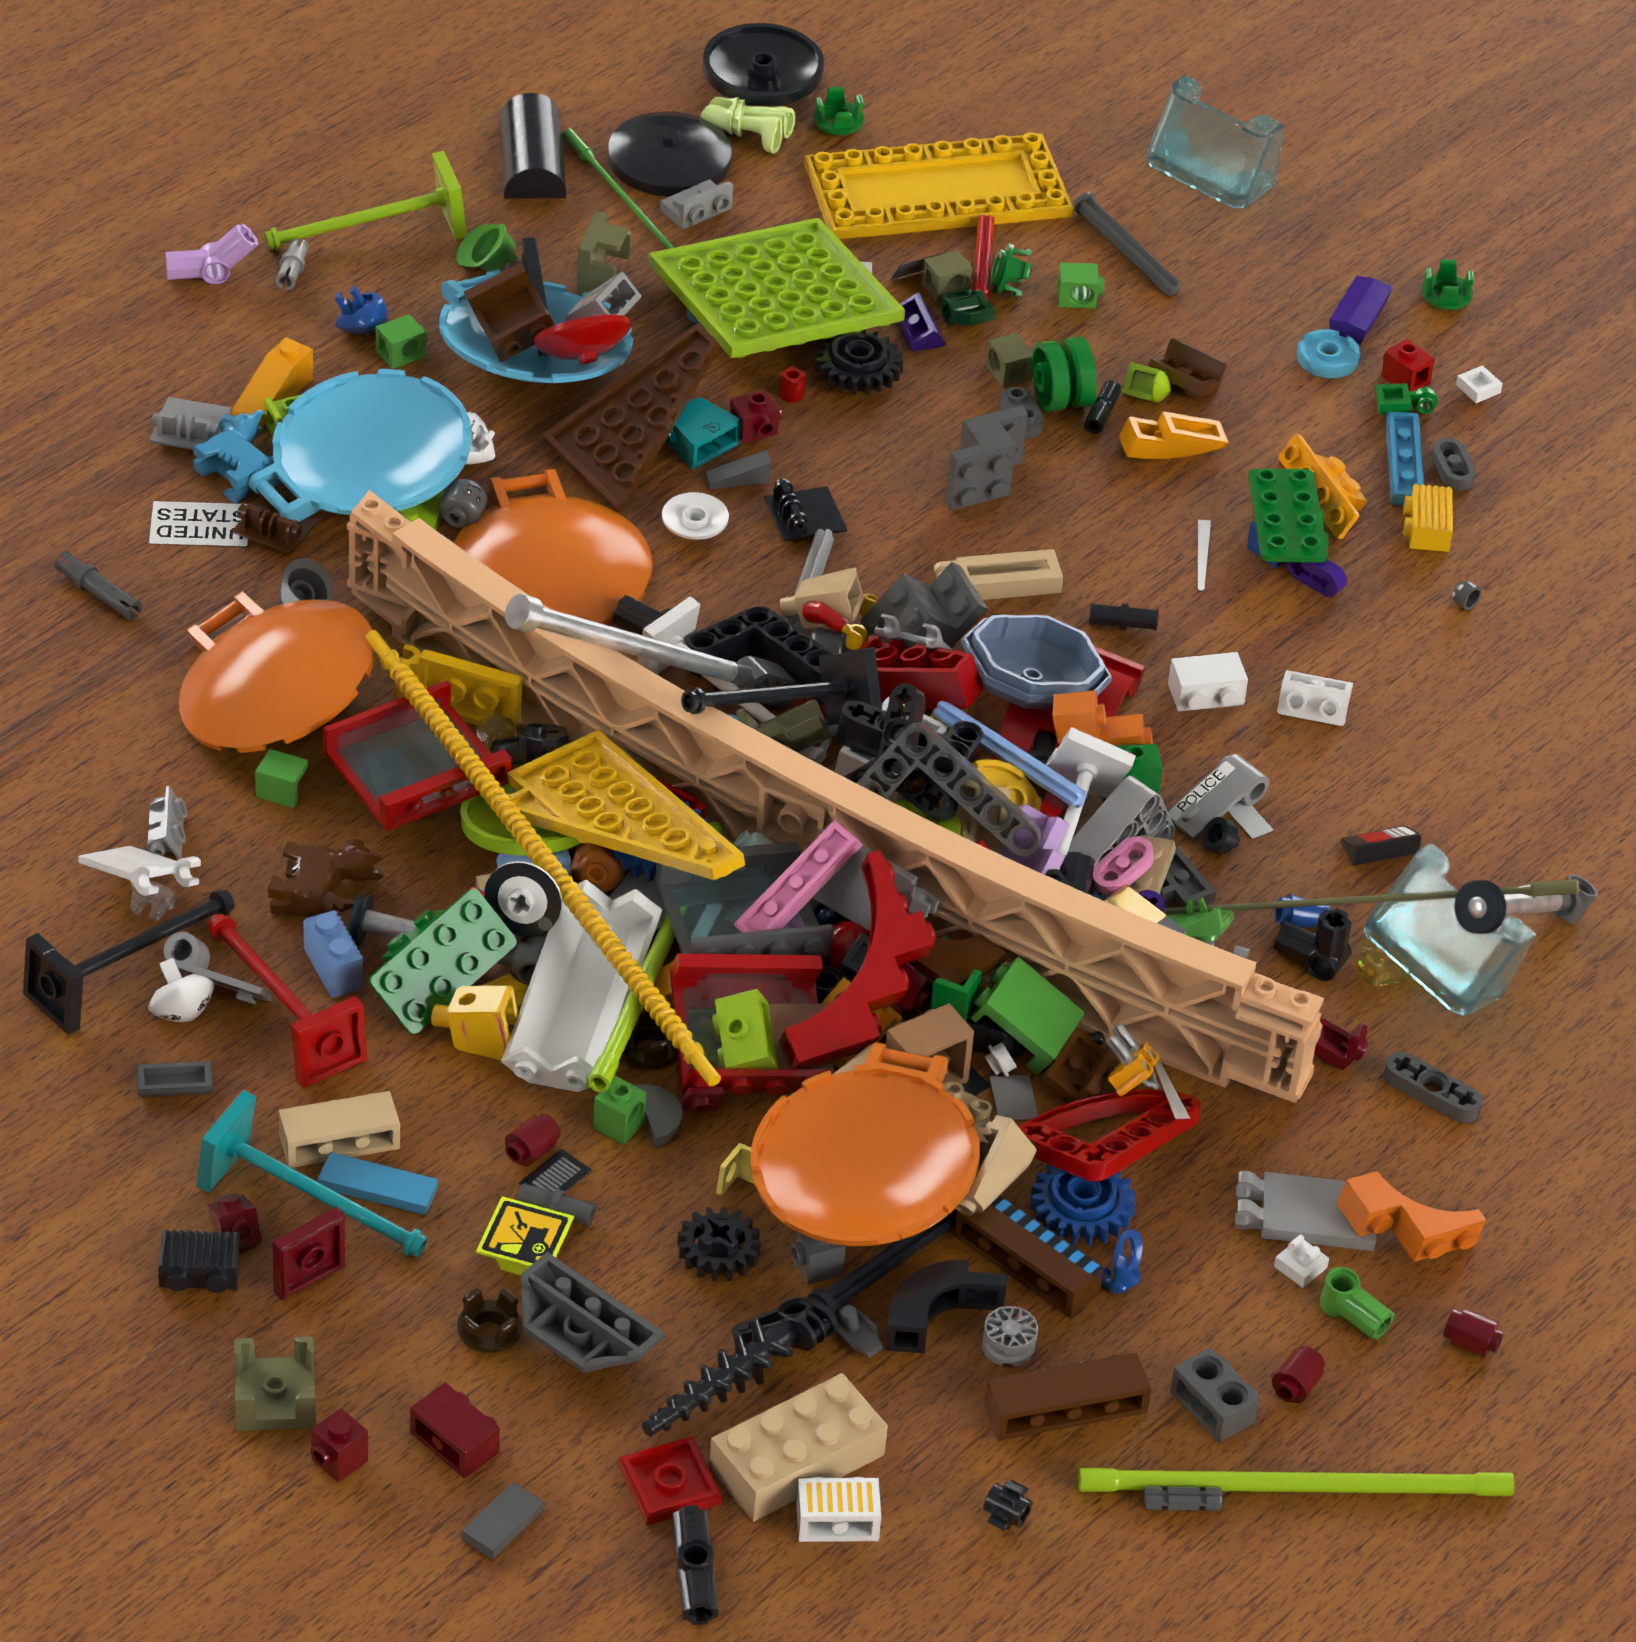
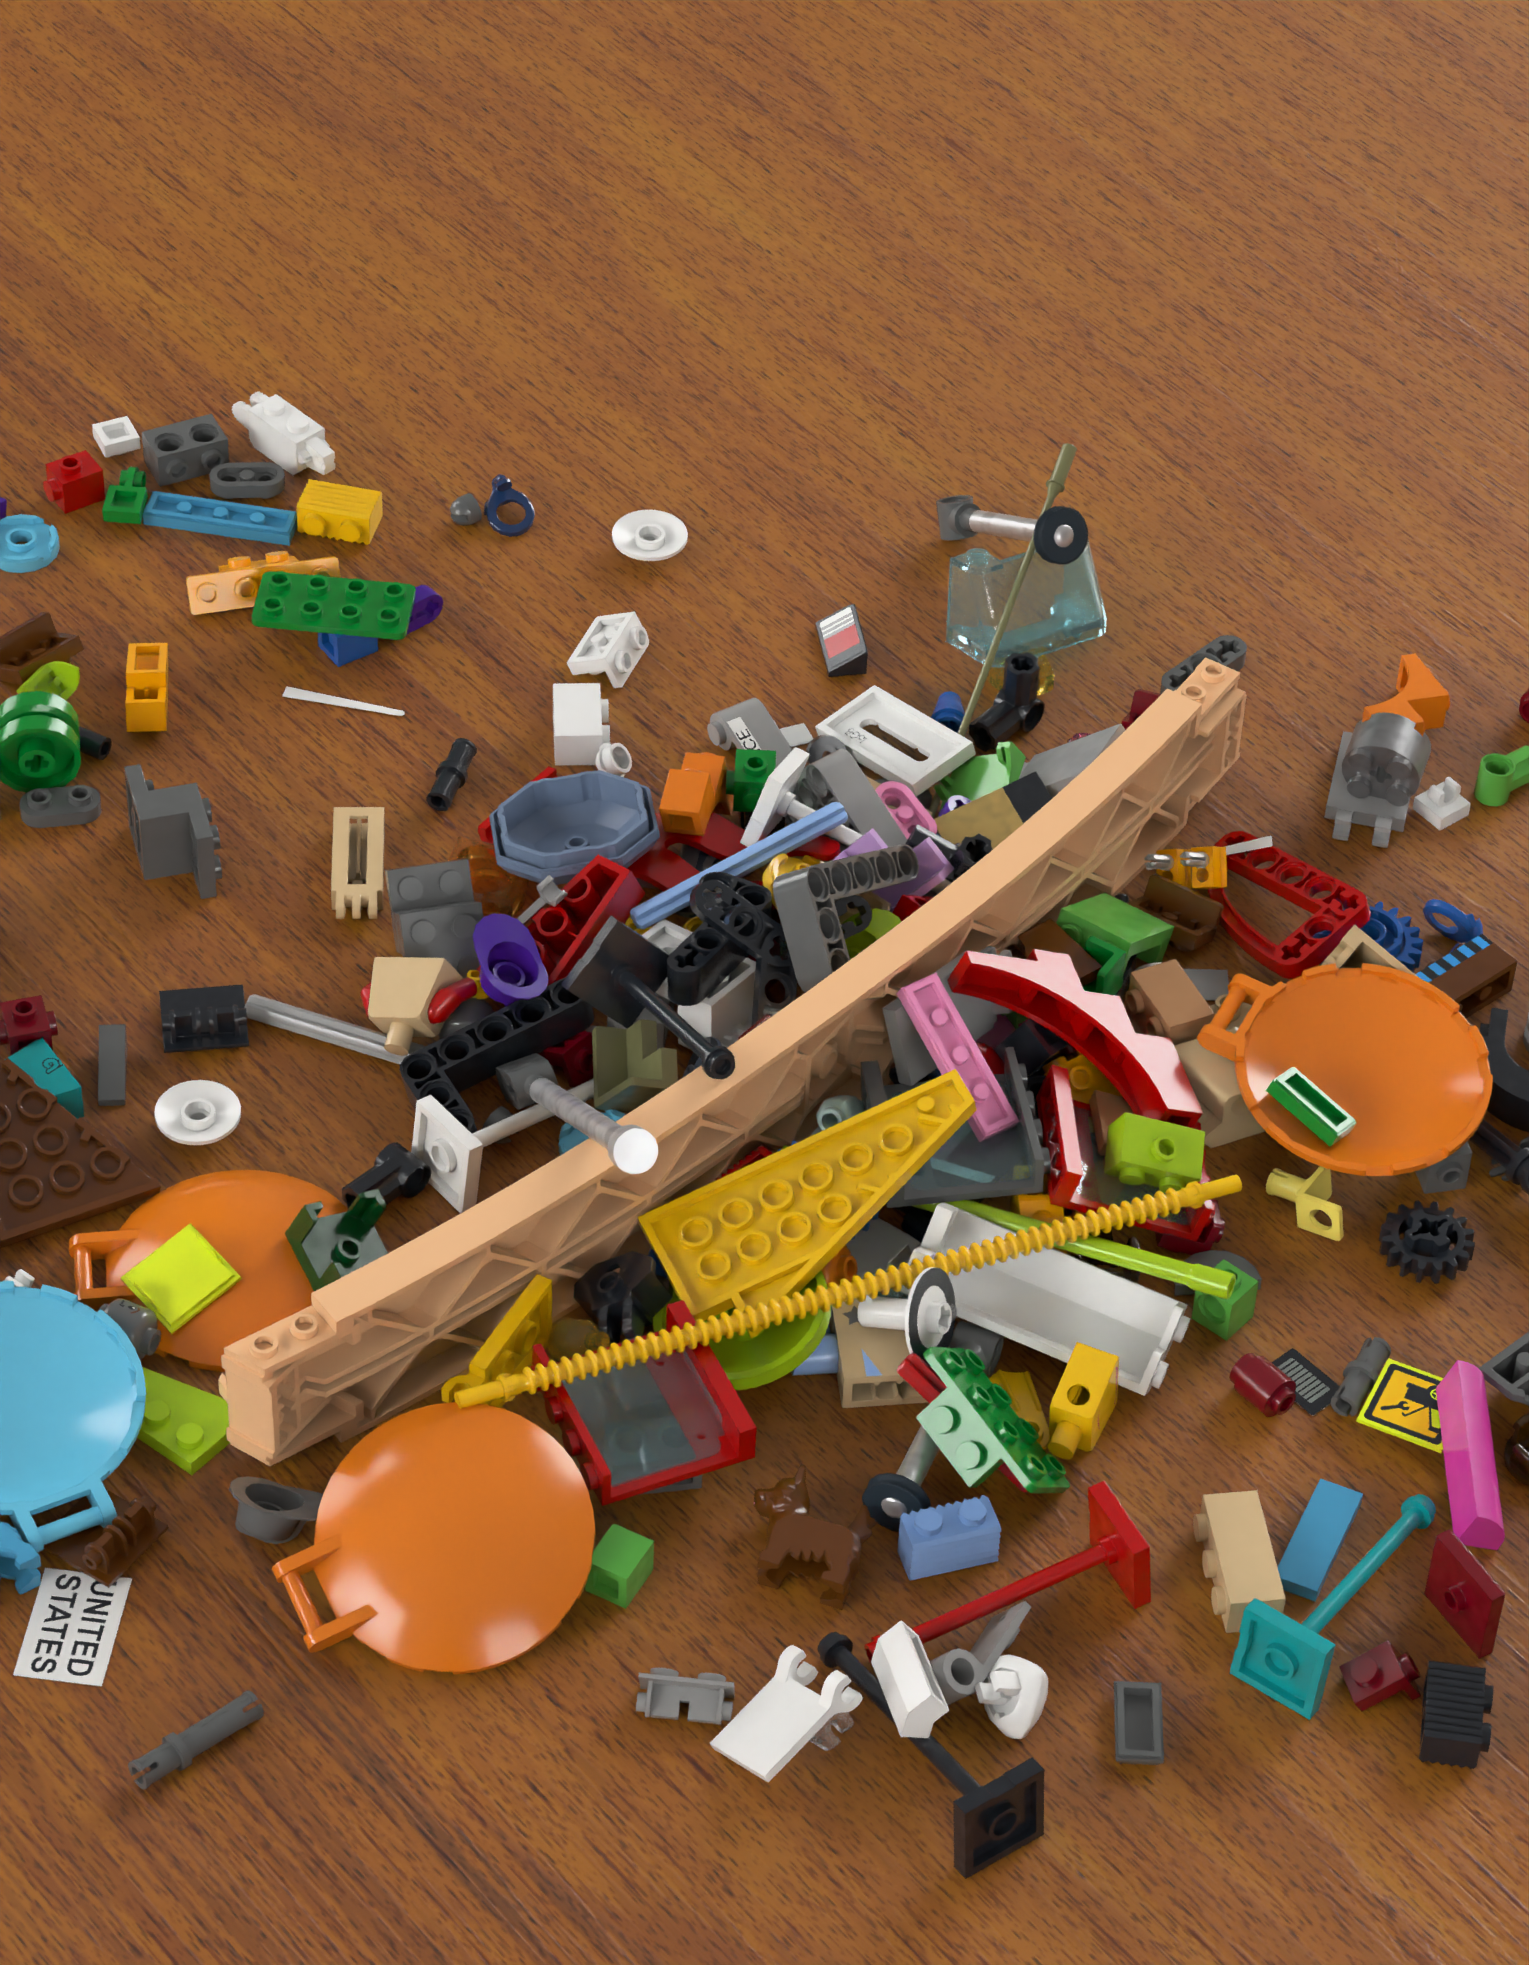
camera: 80 degrees left, 0 degrees up
(171, 919) = (908, 1681): none -> white piece
(460, 1262) = (1470, 1457): none -> dark pink brick
(509, 516) = (181, 1278): none -> neon yellow piece
(561, 587) = (337, 1242): none -> dark green panel
(818, 1127) = (1311, 1106): none -> green tile
(856, 625) = (508, 960): none -> dark purple piece
(1170, 717) = (614, 759): none -> white plate
(1202, 876) = (877, 707): none -> white piece
(1308, 1188) = (1386, 758): none -> flat silver brick
(1472, 705) = (649, 535): none -> white dish
(1474, 422) = (184, 449): none -> dark grey brick
(1492, 609) = (504, 494): none -> dark blue piece
(1515, 474) = (285, 434): none -> white hinge

